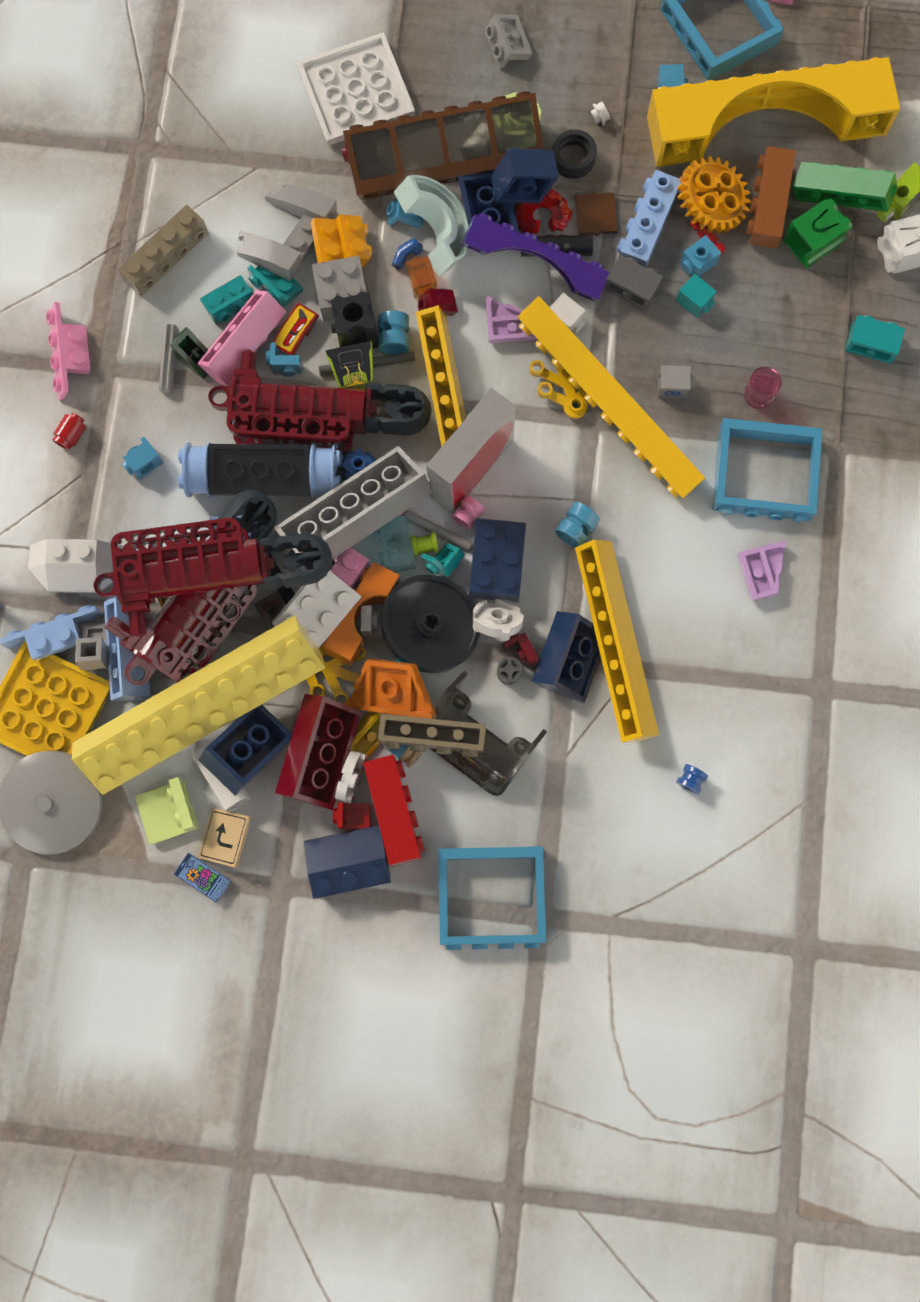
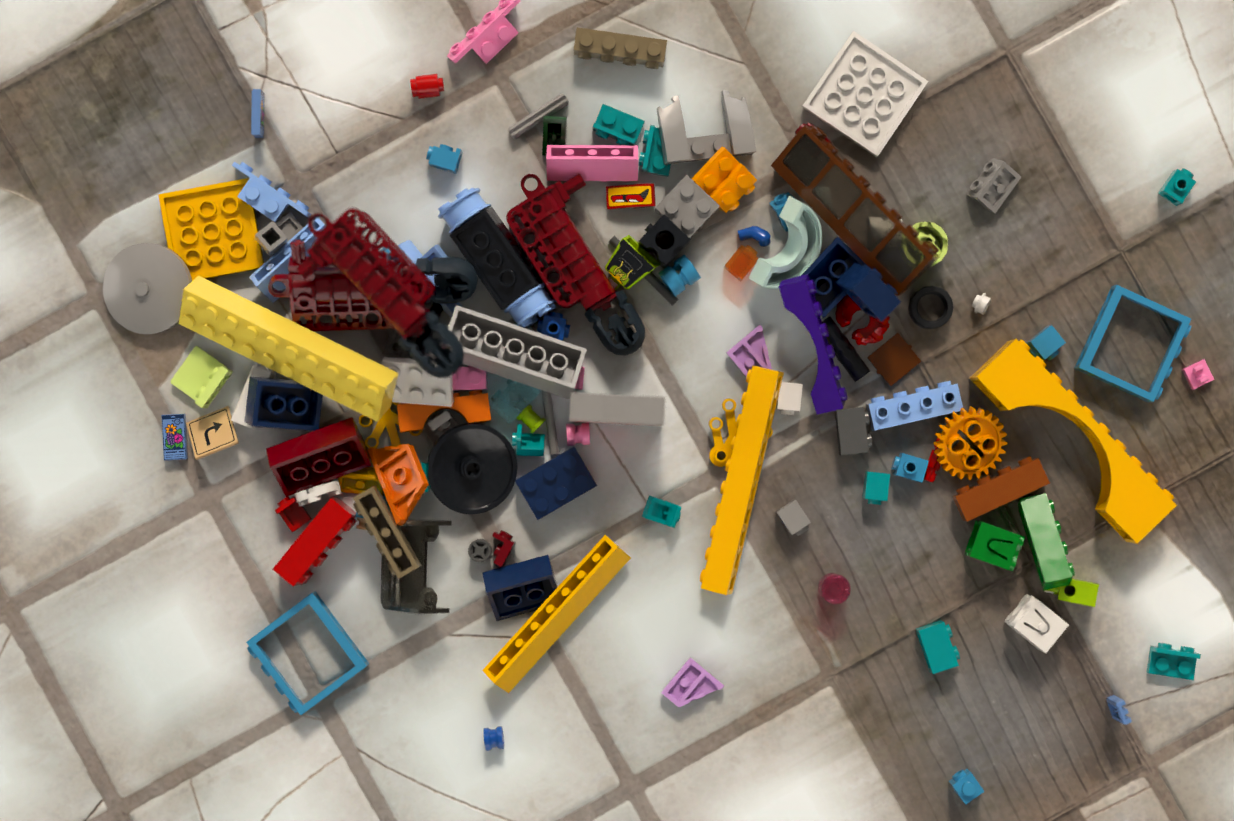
camera: 55 degrees right, 10 degrees up
(70, 564) = (330, 172): white wedge -> none
(283, 364) = (595, 212): dark azure bracket -> none
(346, 862) = (256, 533): dark blue slope -> none
(441, 371) = (667, 342): yellow brick -> none
(442, 297) = (728, 290): dark red bracket -> none
(487, 619) = (499, 515): white plate -> none
(578, 522) = (625, 523): dark azure wheel -> none
(590, 487) = (662, 511): none -> teal bracket
(775, 433) = (732, 645): dark azure window -> none

